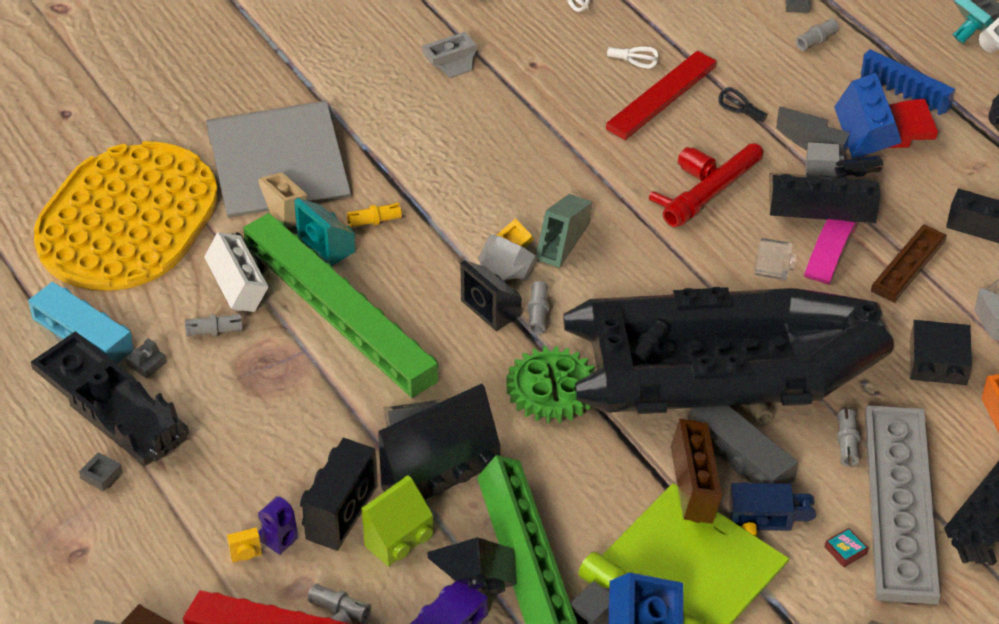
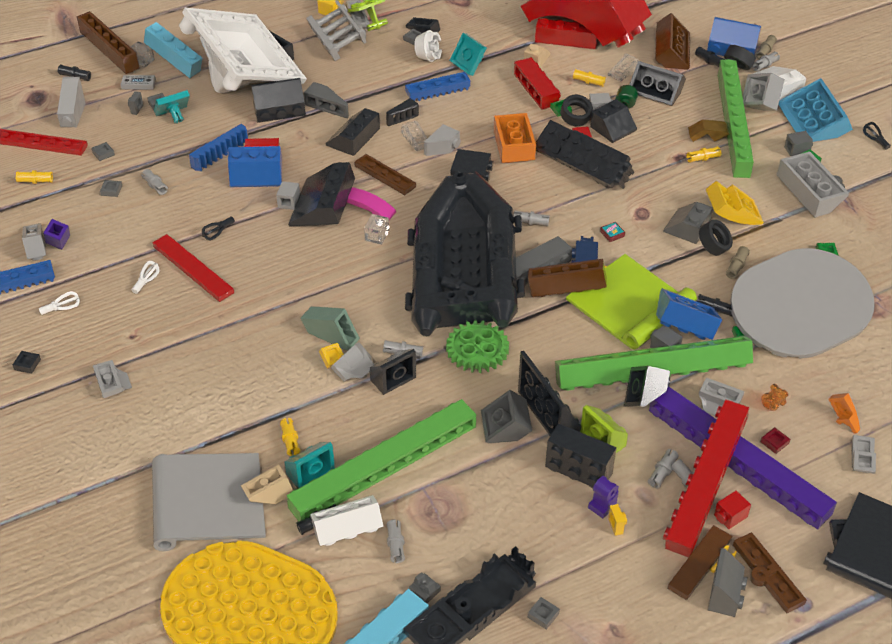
camera: 85 degrees left, 0 degrees up
(689, 203) = (314, 263): red cylinder -> none
(696, 163) = (275, 254): red brick -> none
(807, 128) = (259, 196): dark grey slope -> none
(858, 166) = (299, 177): black pin -> none
(901, 506) = (582, 204): light grey plate -> none

